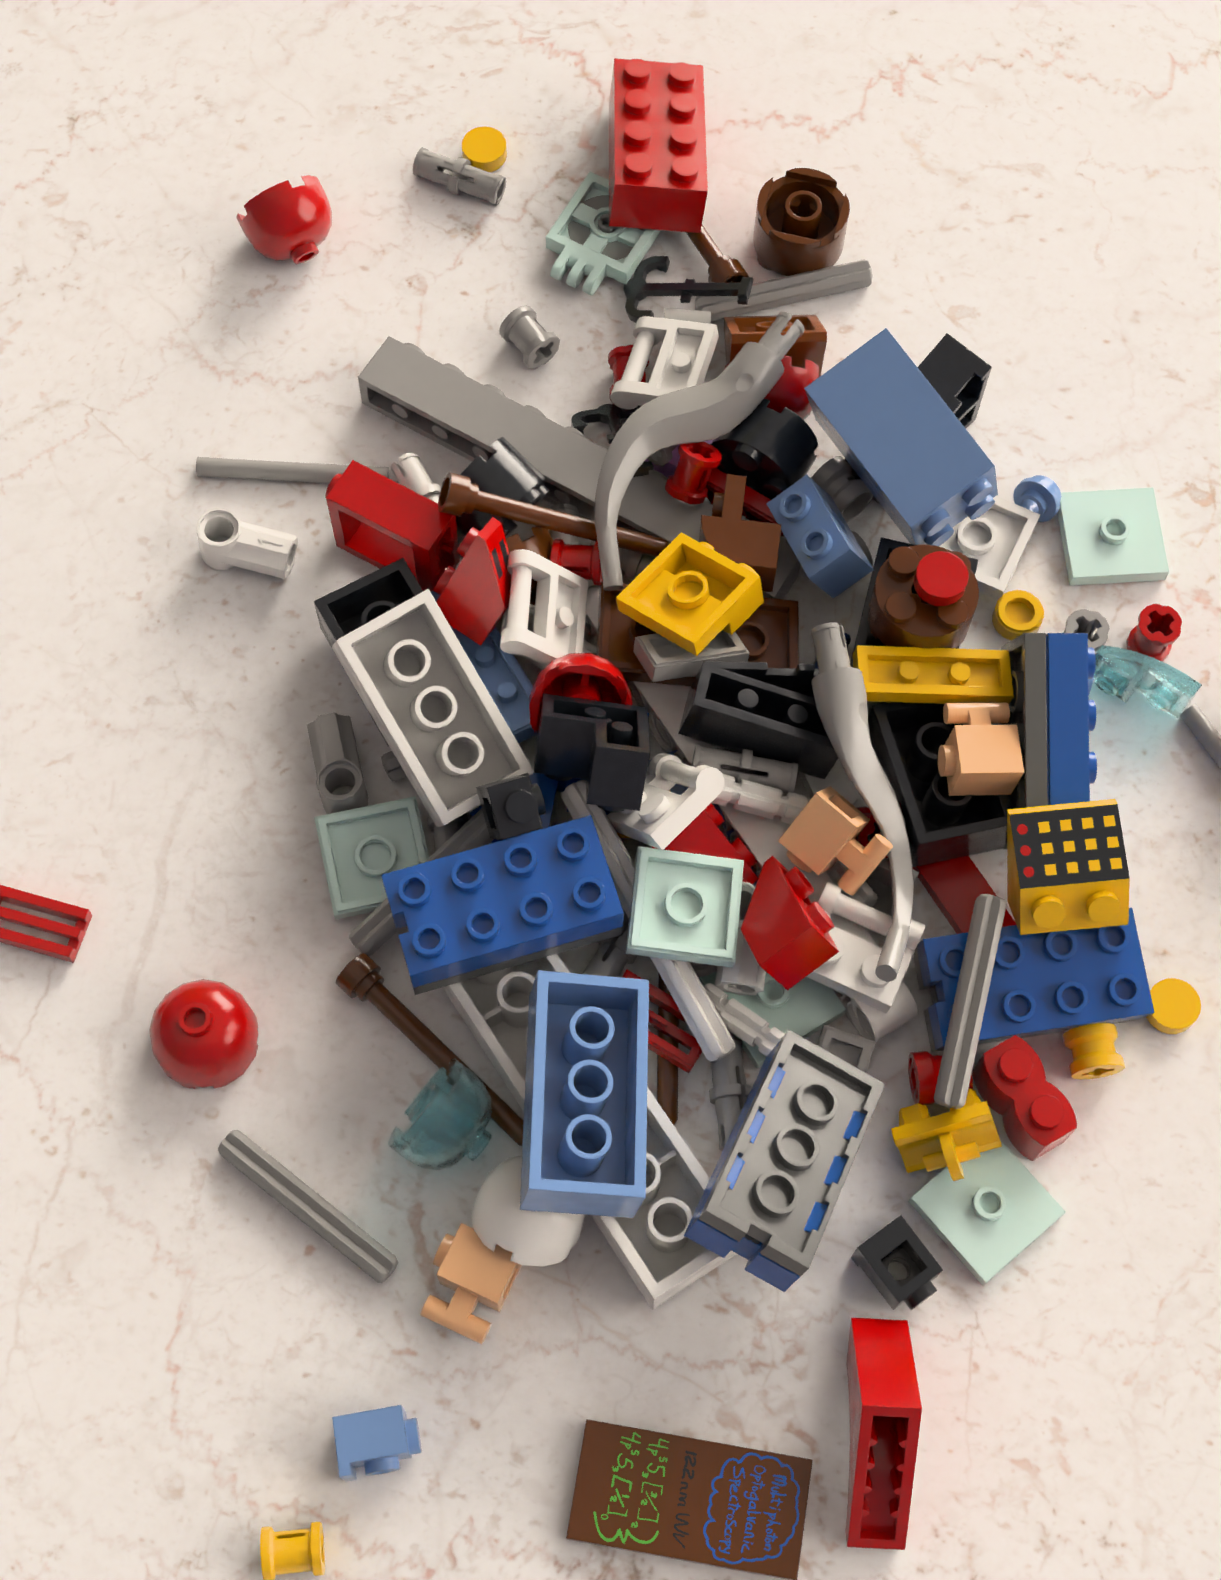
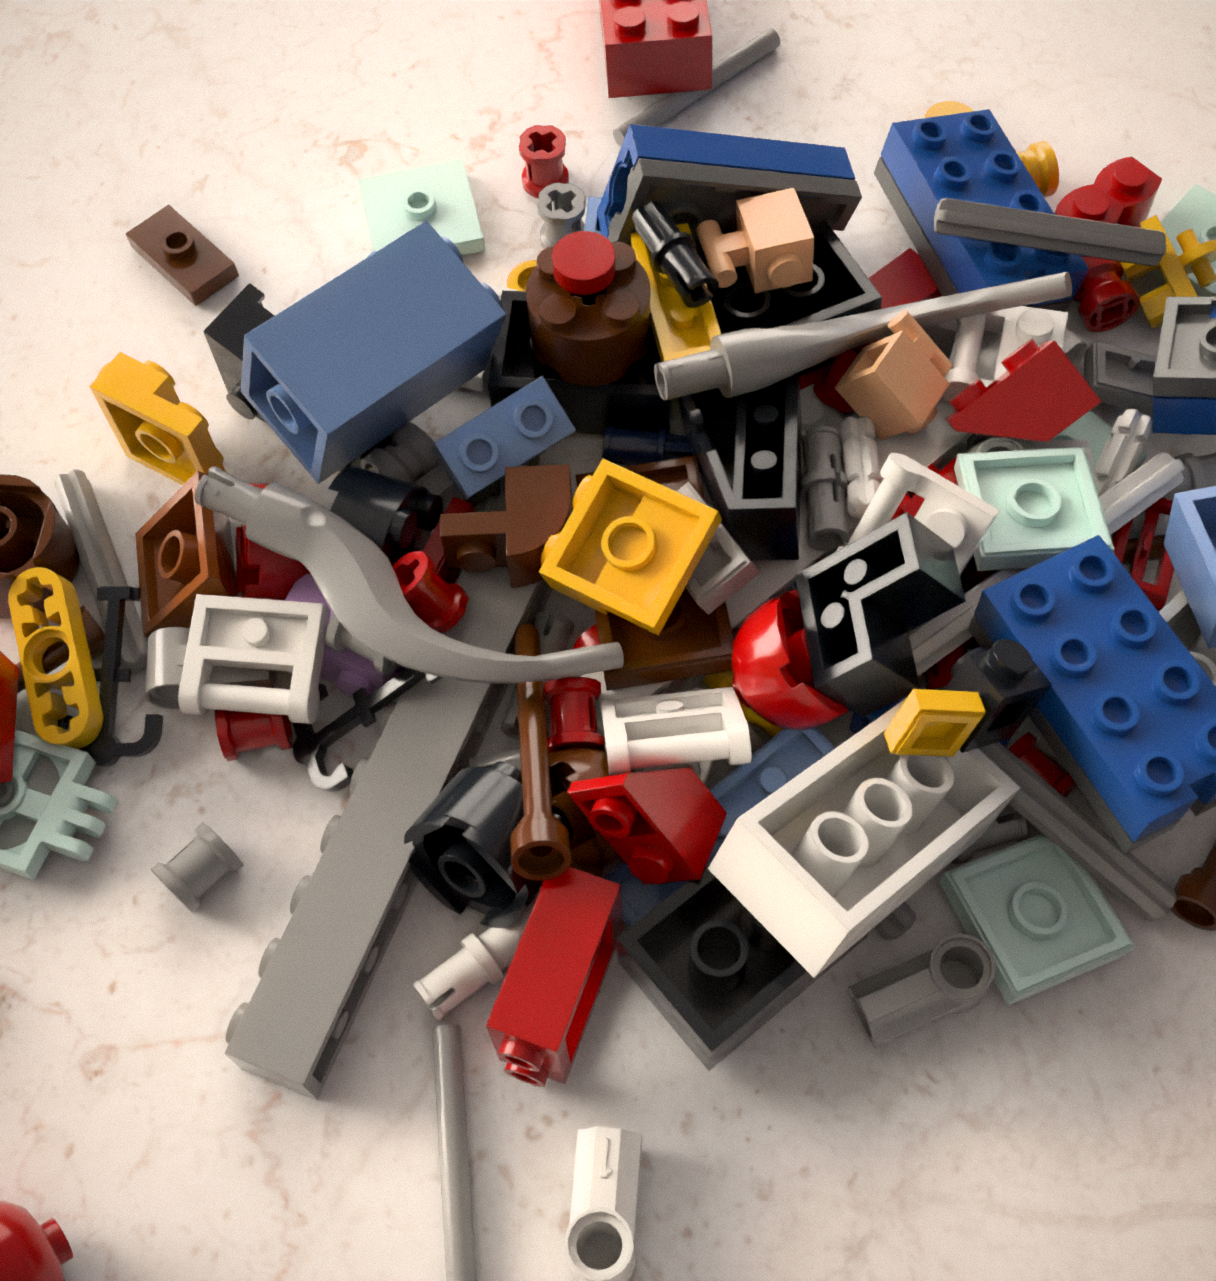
camera: 95 degrees left, 5 degrees down
(488, 753) = (934, 722): none -> yellow tile
(718, 260) = (33, 639): none -> yellow beam
(897, 304) = (152, 420): none -> yellow plate
(963, 664) = (674, 254): none -> black axle
(1067, 867) = (887, 155): slope -> none
(1087, 354) = (182, 254): none -> reddish brown plate
(1126, 671) = (601, 152): clear light blue slope -> none

